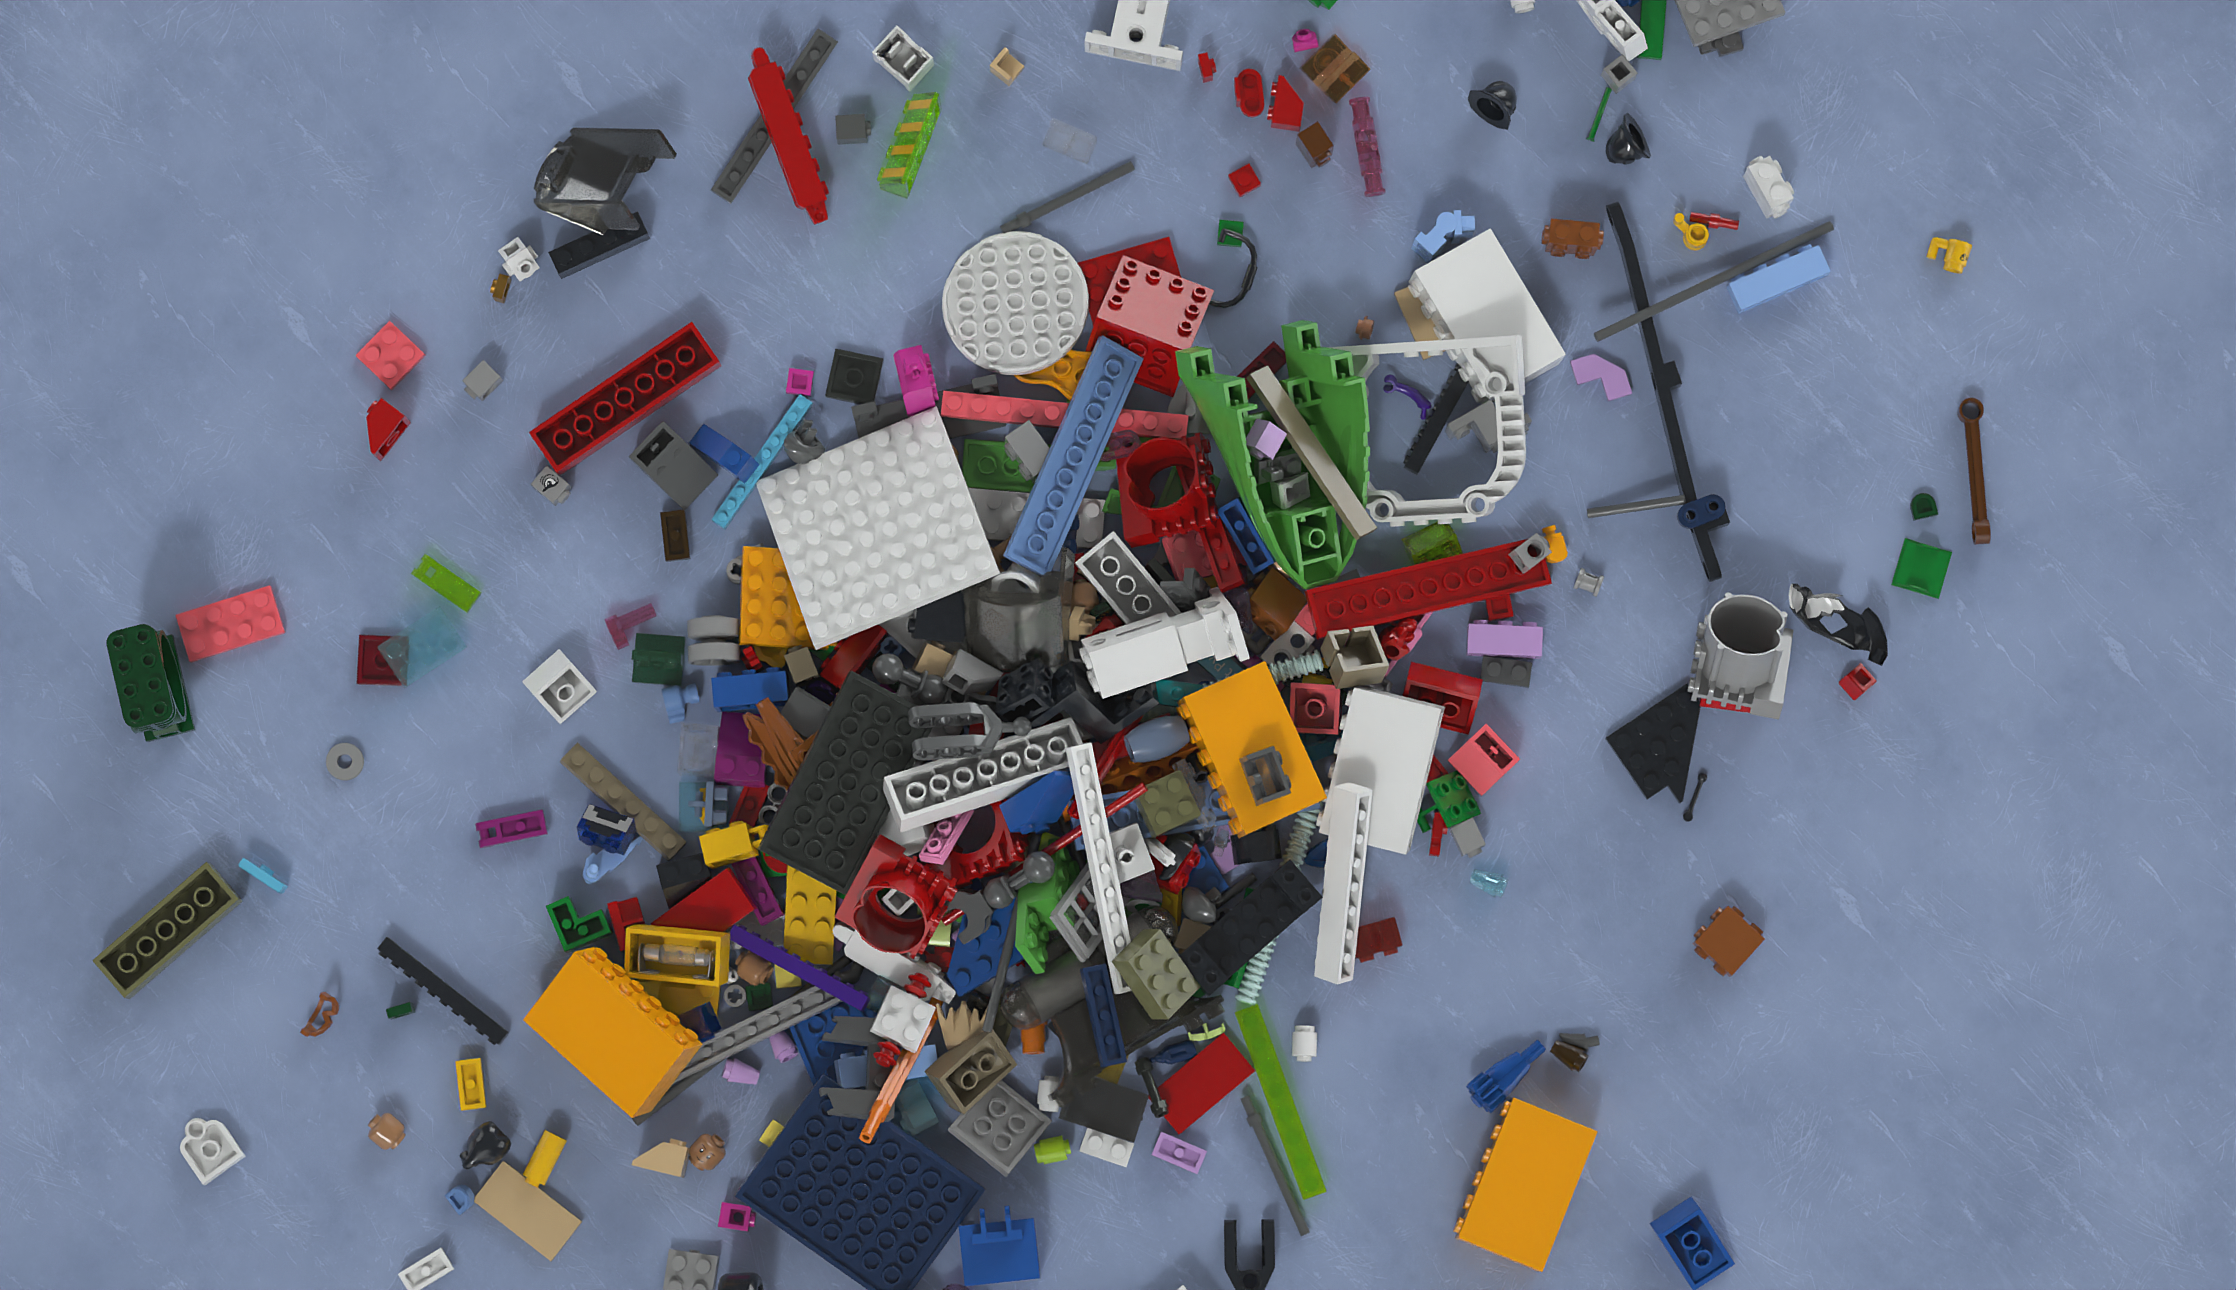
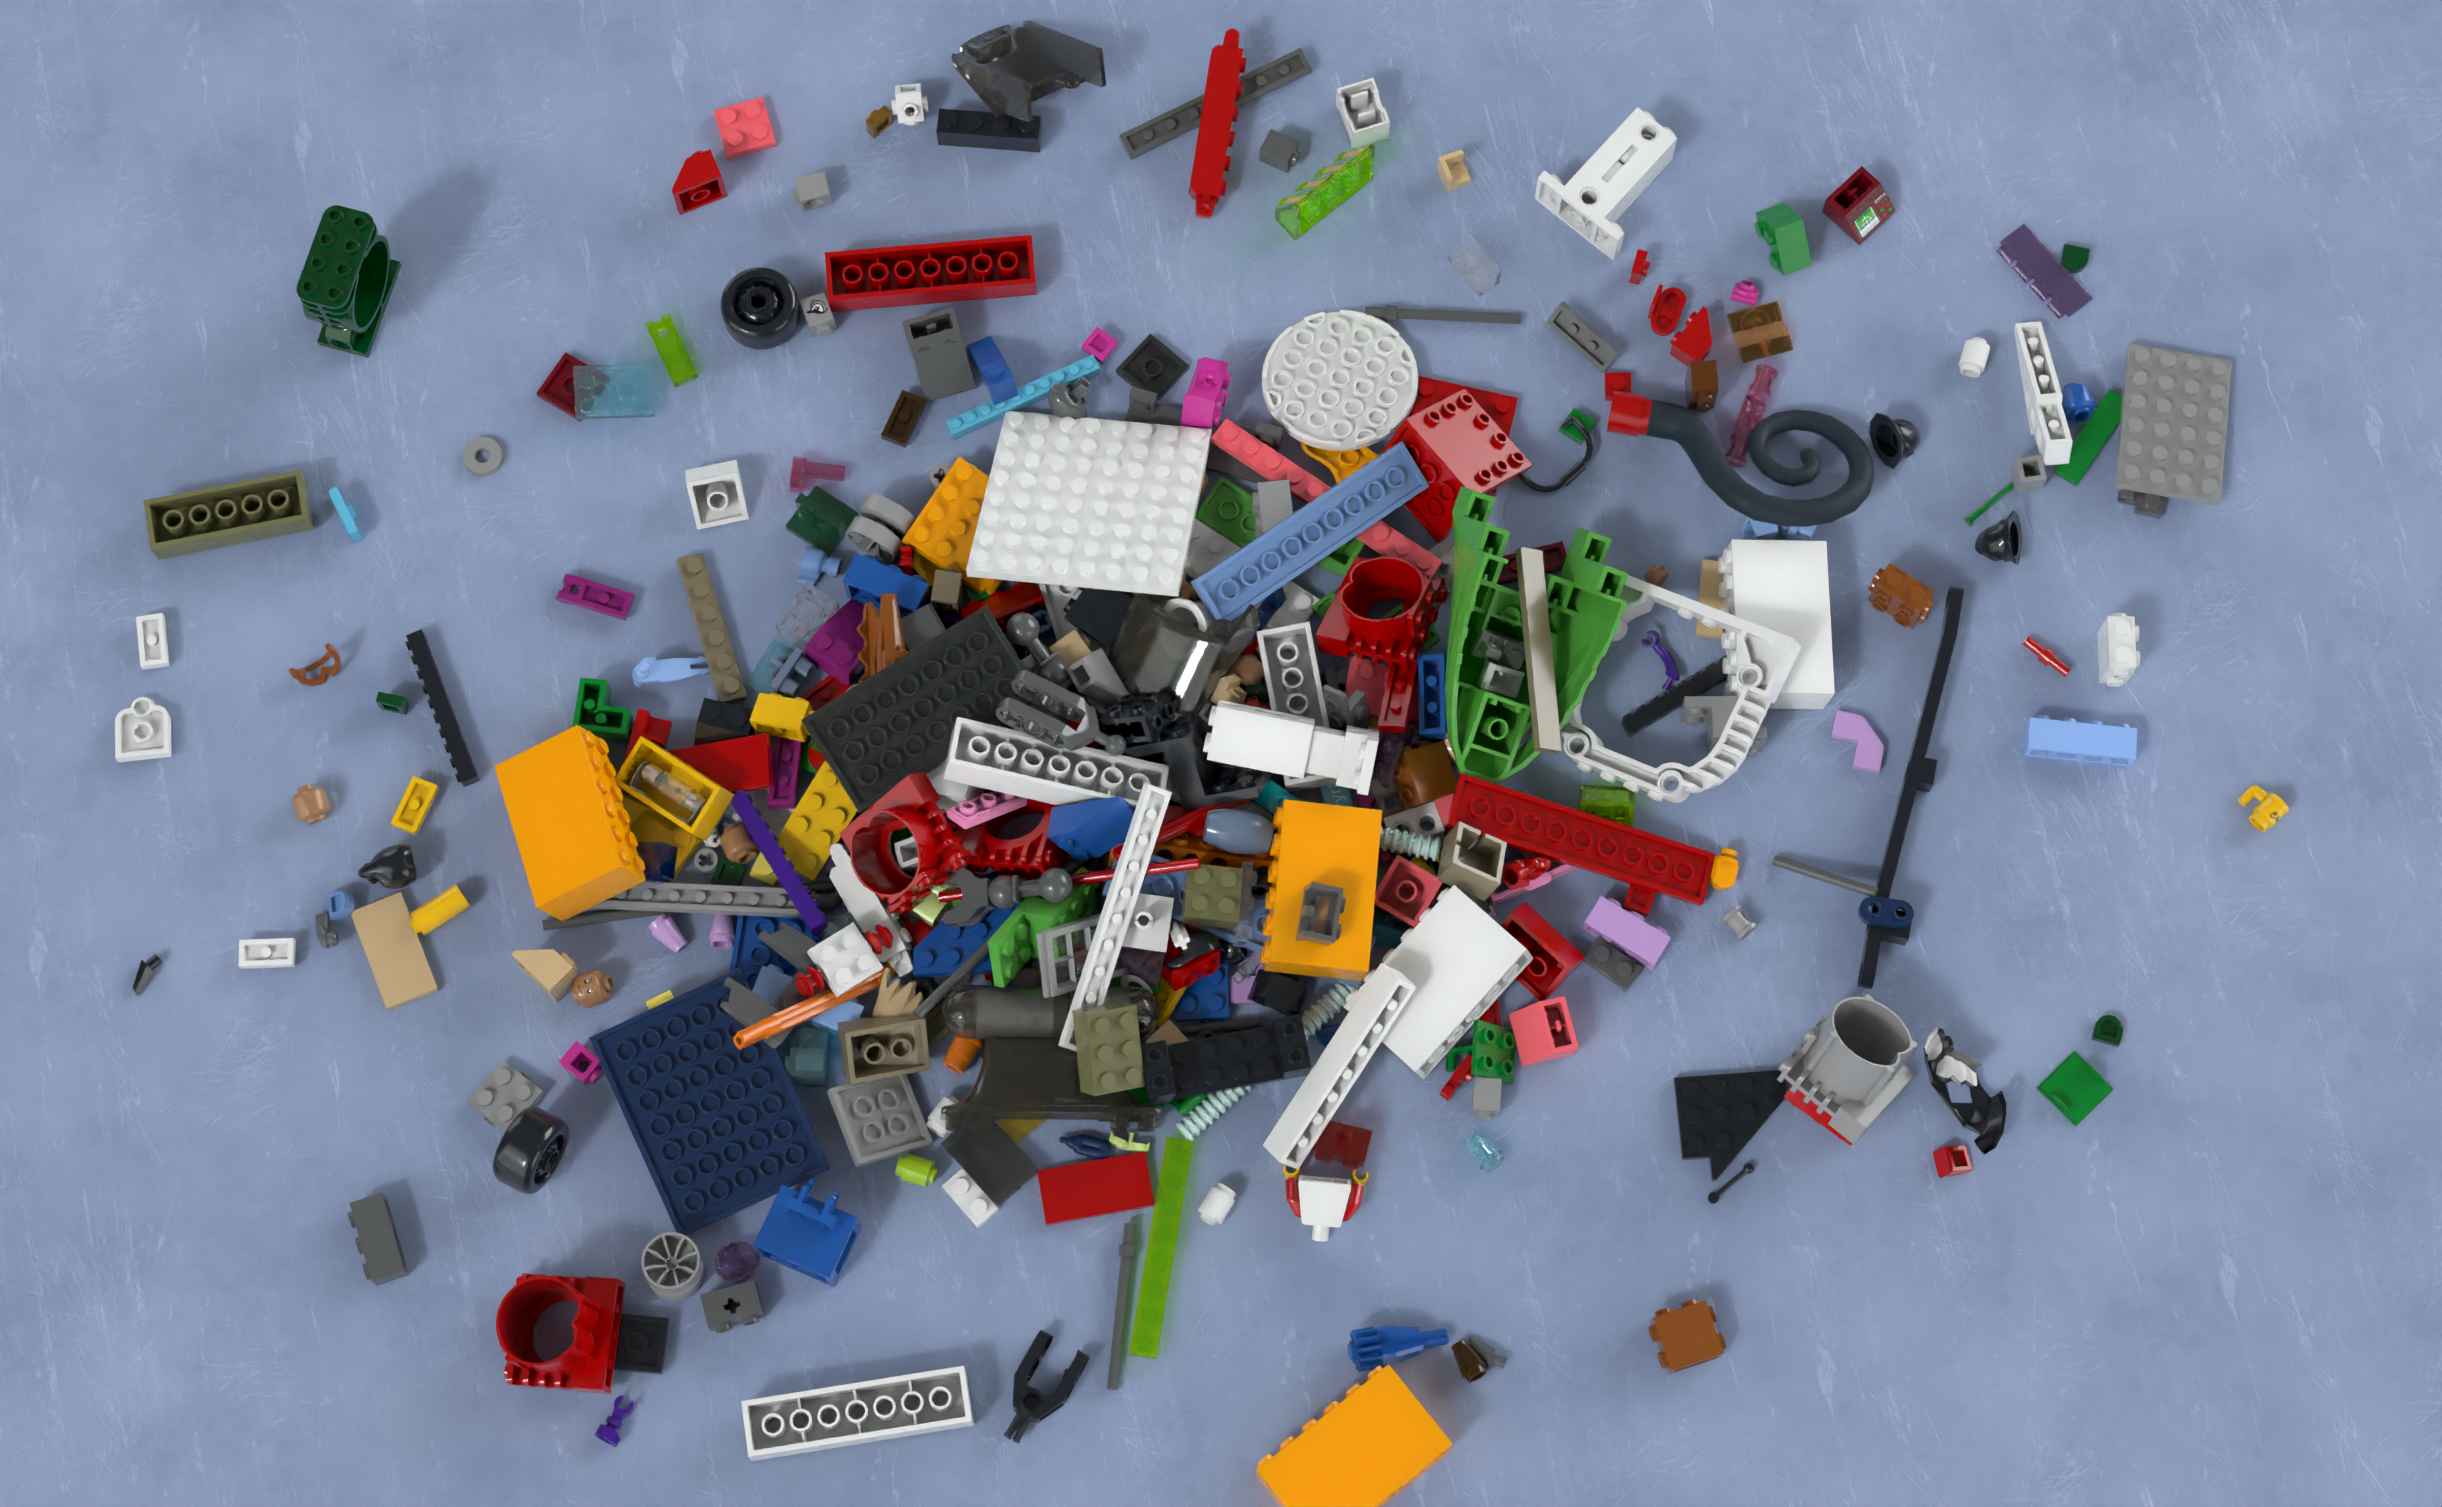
camera: 30 degrees right, 10 degrees down
(169, 1070) = (152, 641): none -> white plate
(230, 623) = (457, 281): coral plate -> none
(467, 1233) = (323, 931): none -> dark grey arm
(505, 527) = (766, 325): none -> black wheel
(606, 829) = (679, 642): brick -> none
(1103, 1015) = (1035, 1059): dark blue plate -> none
(1117, 445) = (1359, 550): clear pink plate -> none
(1159, 1106) = (1042, 1184): pearl dark grey bar -> none
(1179, 1153) = (1035, 1241): lavender plate -> none
(1194, 153) = (1583, 337): none -> dark grey plate
(1200, 907) = (1190, 1017): dark grey piece -> none
(1264, 439) = (1499, 612): lavender brick -> none
(1276, 199) = (1636, 415): none -> black animal
(1386, 993) = (1323, 1200): none -> white torso
(1523, 559) = (1688, 867): light grey brick -> none
(1694, 235) = (2021, 657): yellow piece -> none
(1713, 281) = (2015, 708): dark grey piece -> none
(1980, 525) = (2157, 1074): reddish brown piece -> none

